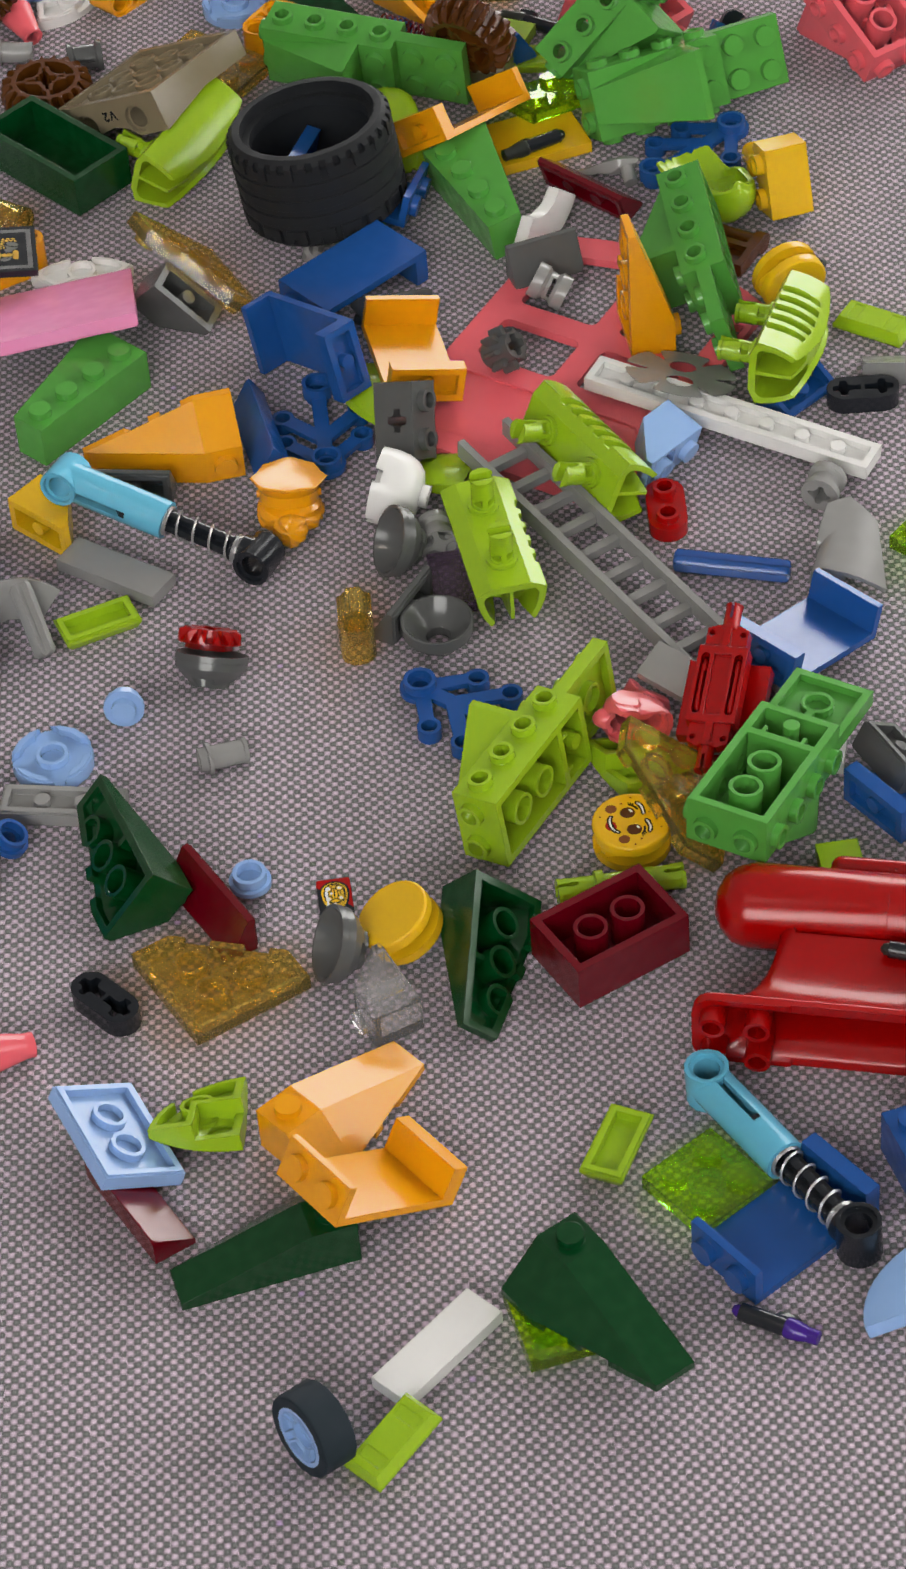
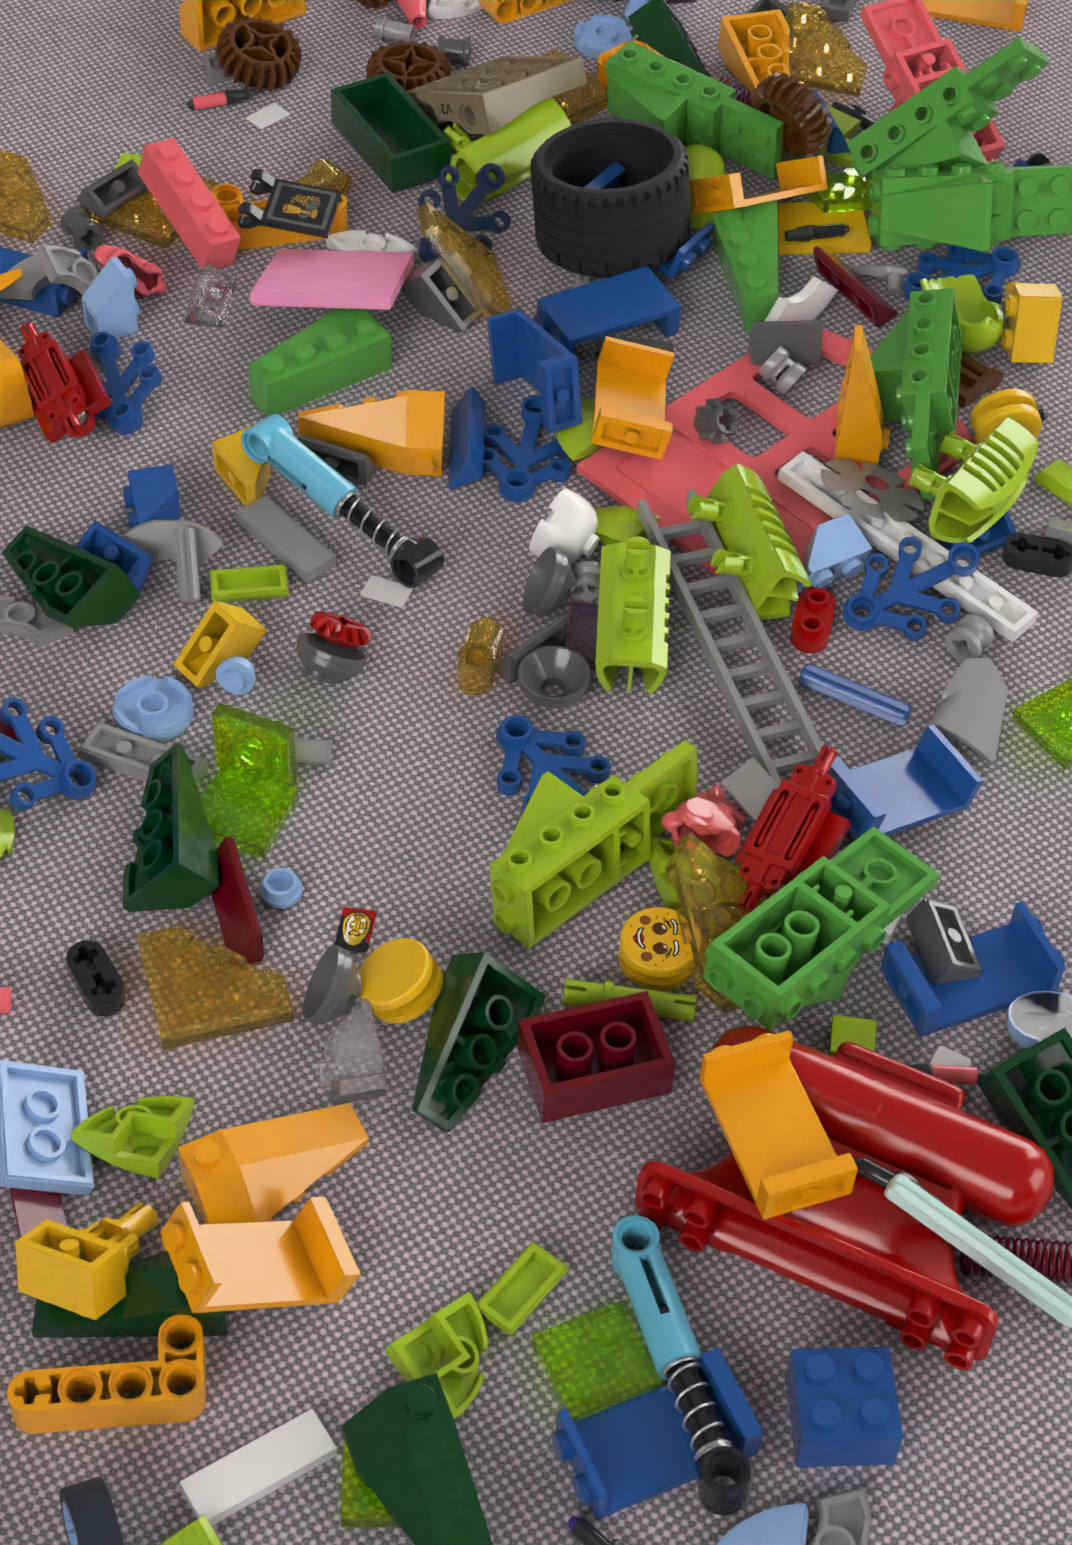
camera: 10 degrees right, 5 degrees up
(93, 675) = (220, 635): none -> yellow slope
(175, 761) = (254, 744): none -> clear neon green plate
(179, 183) = (461, 213): none -> dark blue plant
(188, 817) = (247, 809): none -> clear neon green plate
(206, 1228) = (82, 1266): none -> yellow brick
(236, 594) = (386, 591): none -> white sticker
(283, 1325) = (111, 1382): none -> light orange beam
(289, 498) = (466, 512): light orange piece -> none
(406, 417) = (598, 464): dark grey brick -> none
(565, 1192) = (447, 1346): none -> lime brick
(749, 458) = (907, 591): none -> blue plant
(800, 932) = (773, 1126): none -> light orange panel

